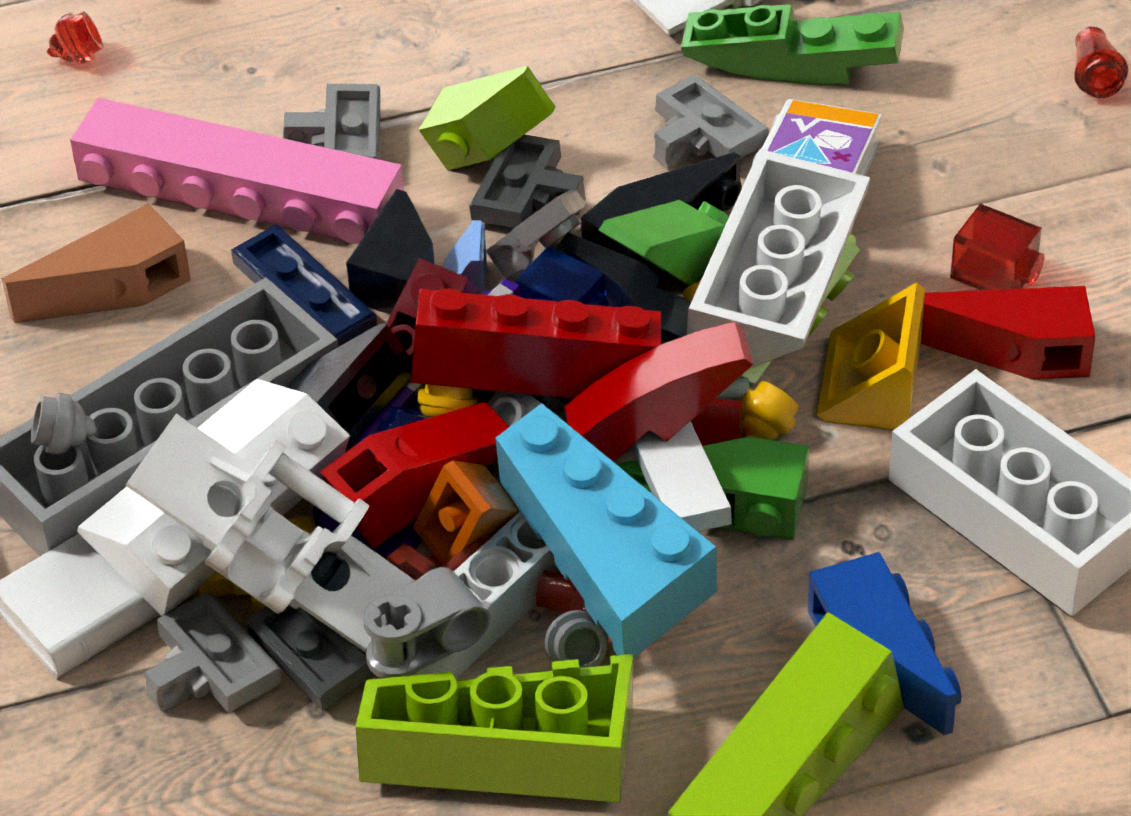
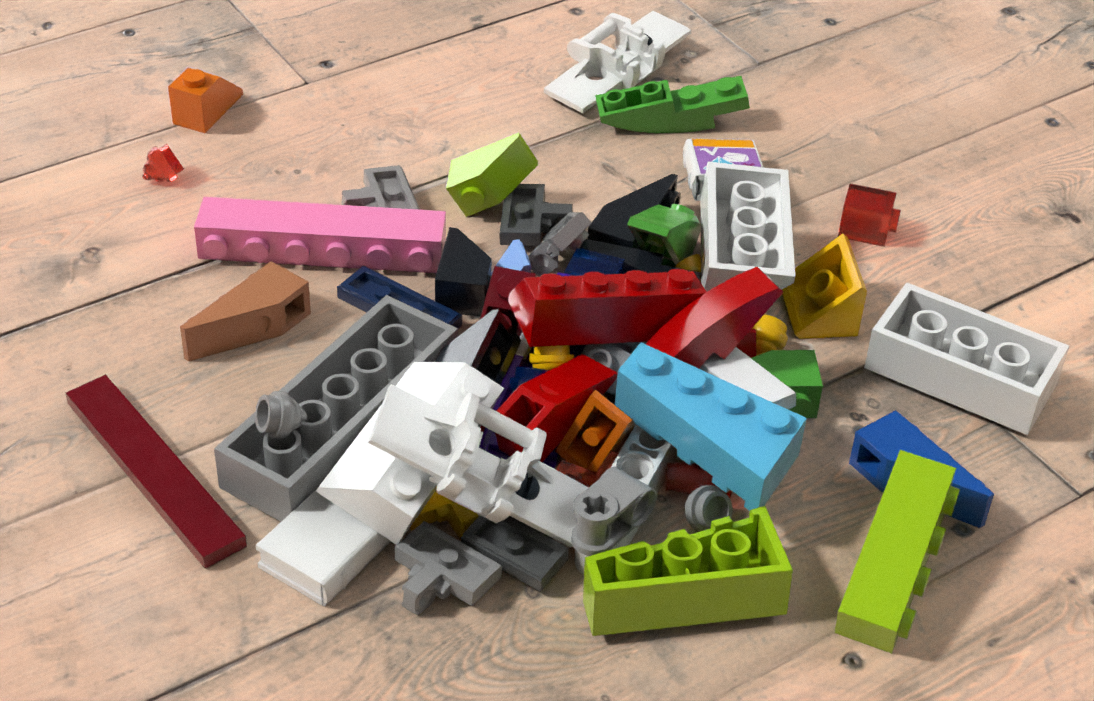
camera: 20 degrees left, 5 degrees down
(702, 122) = (634, 162): light grey hinge -> none
(1014, 330) = (917, 256): red slope -> none
(1098, 64) = (873, 95): clear red cone -> none

